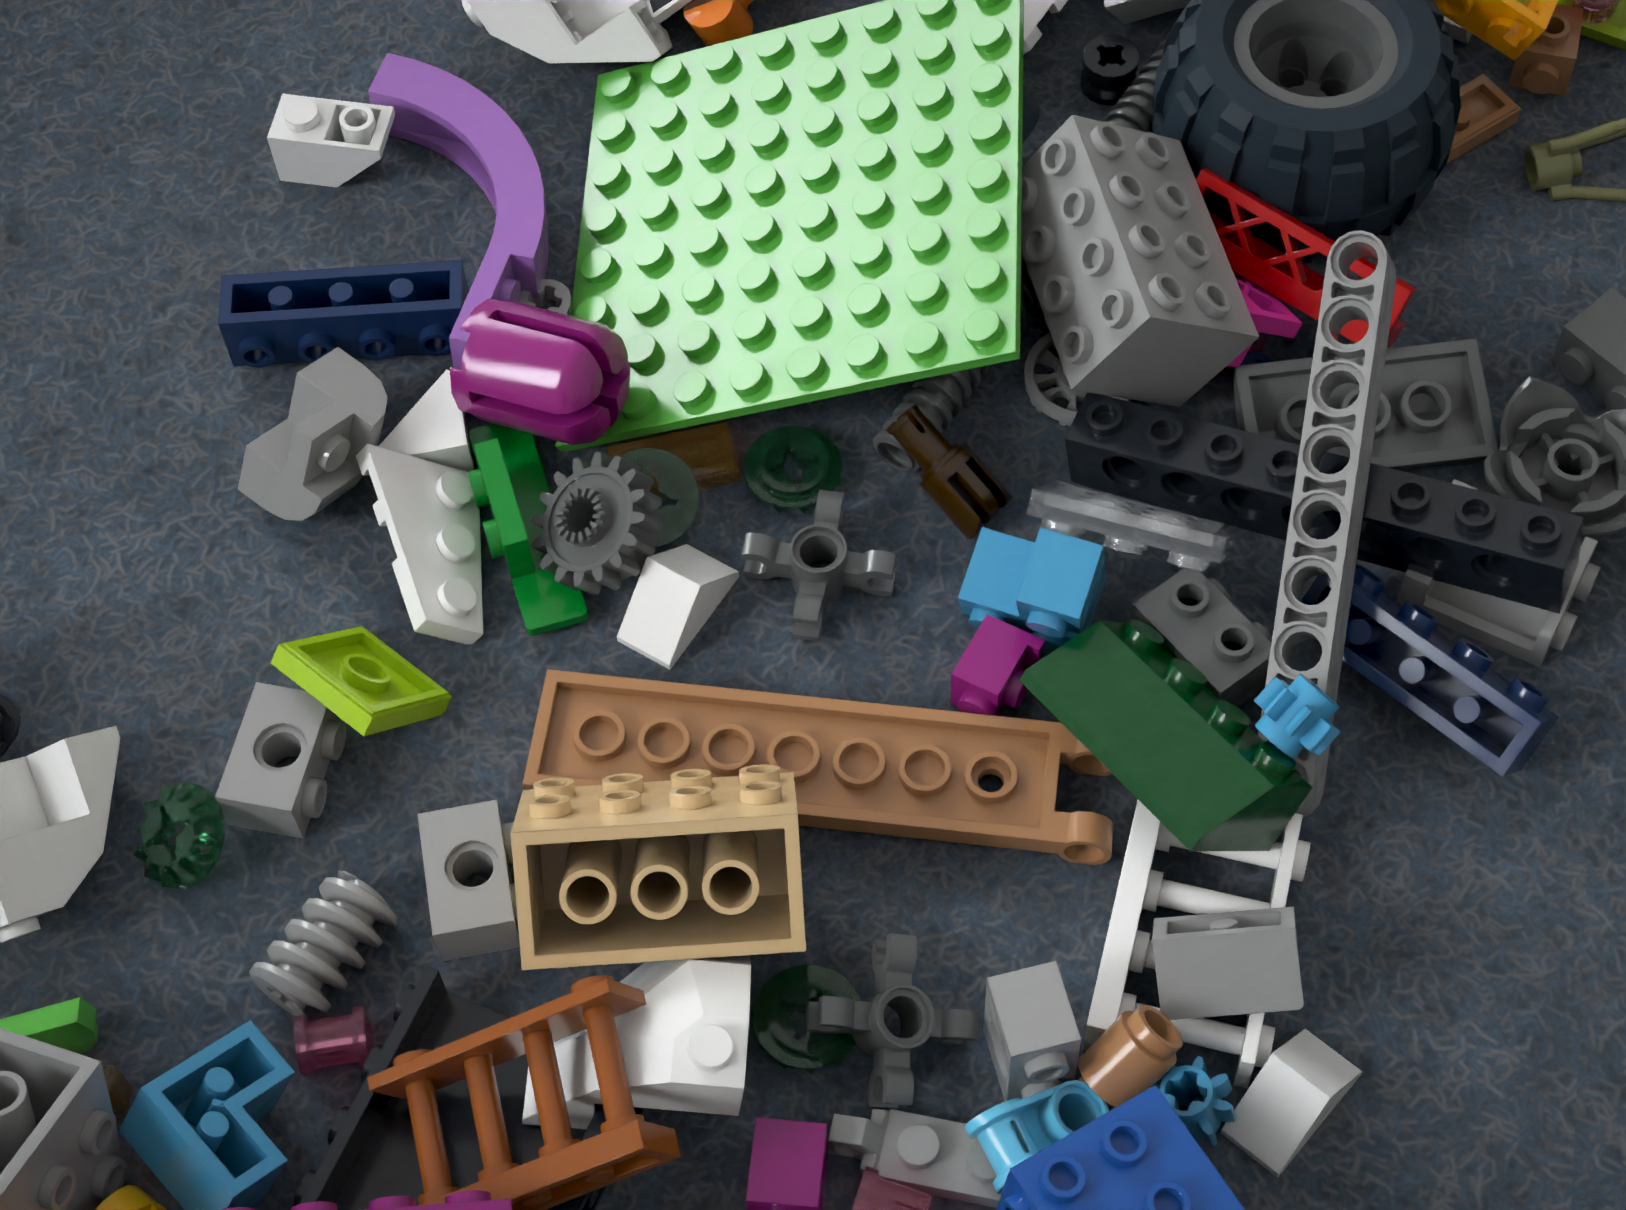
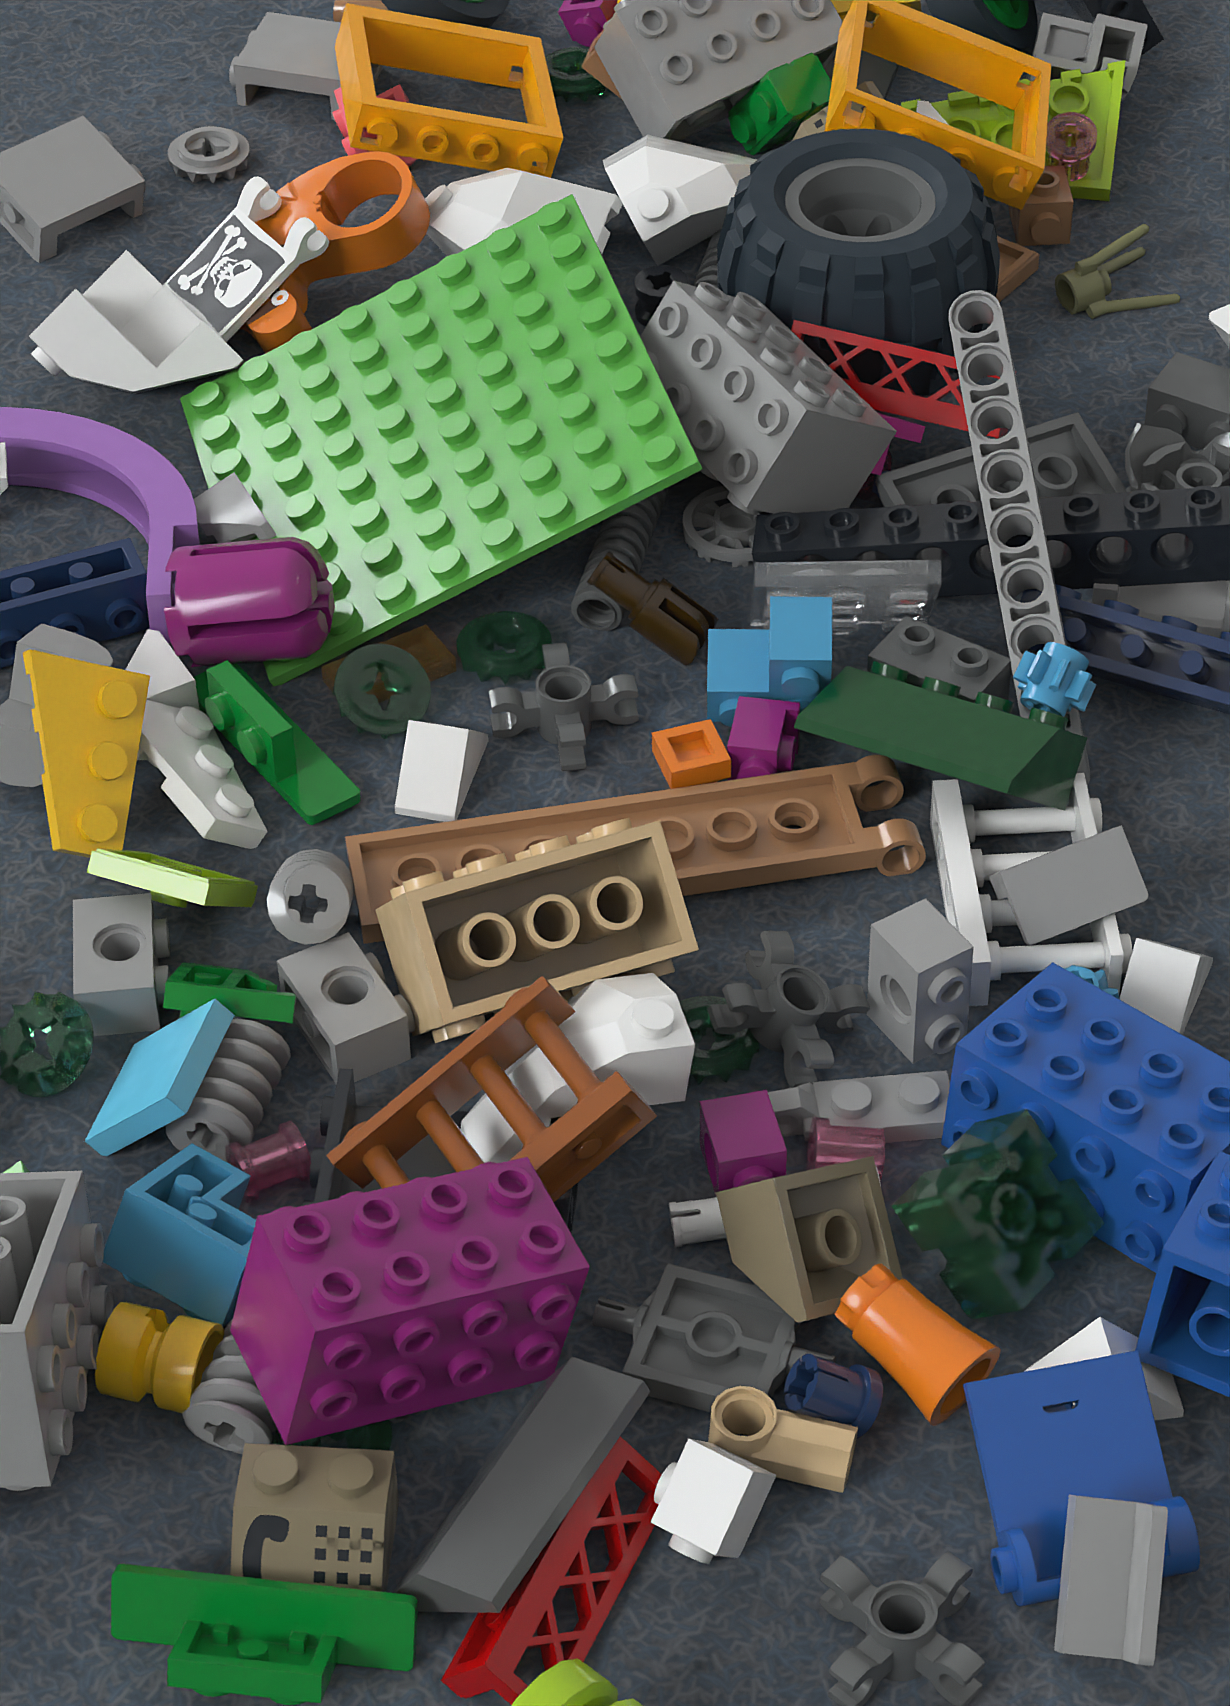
camera: 20 degrees left, 15 degrees down
(261, 920) = (160, 1078): none -> medium azure tile
(325, 512) = (89, 747): none -> yellow wing
(354, 833) = (234, 988): none -> green wing
(478, 744) = (288, 907): none -> light grey piece
(577, 242) = (231, 513): none -> light grey slope
(598, 524) = (351, 707): dark grey gear -> none
(917, 667) = (691, 754): none -> orange tile
(1030, 1124) = (932, 1041): medium azure piece -> none
(1130, 1055) = (1009, 967): medium nougat brick -> none

